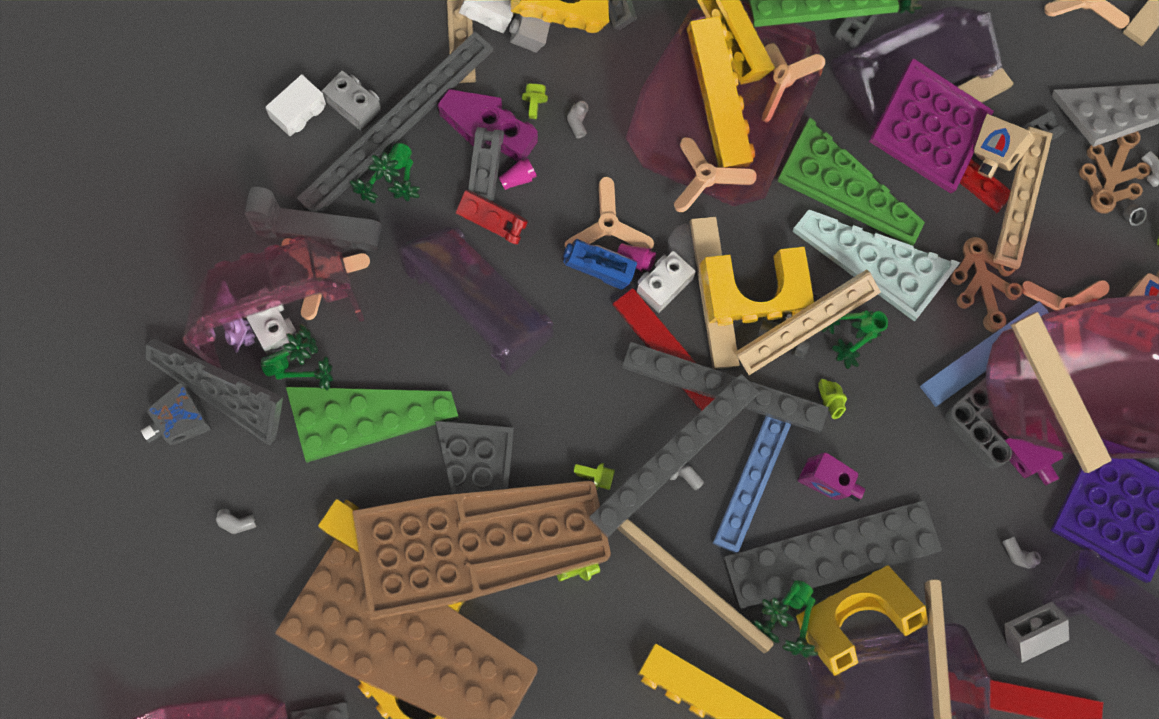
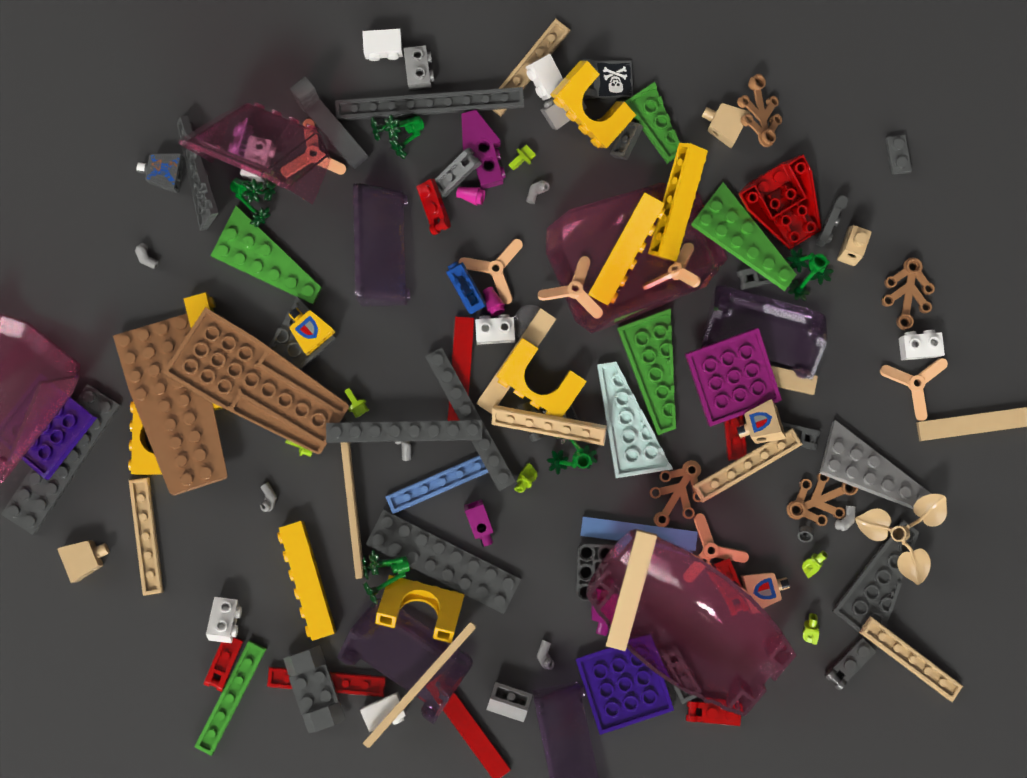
camera: 45 degrees right, 10 degrees up
(482, 440) = (309, 330): none -> yellow torso
(598, 653) = (270, 498): none -> light grey arm

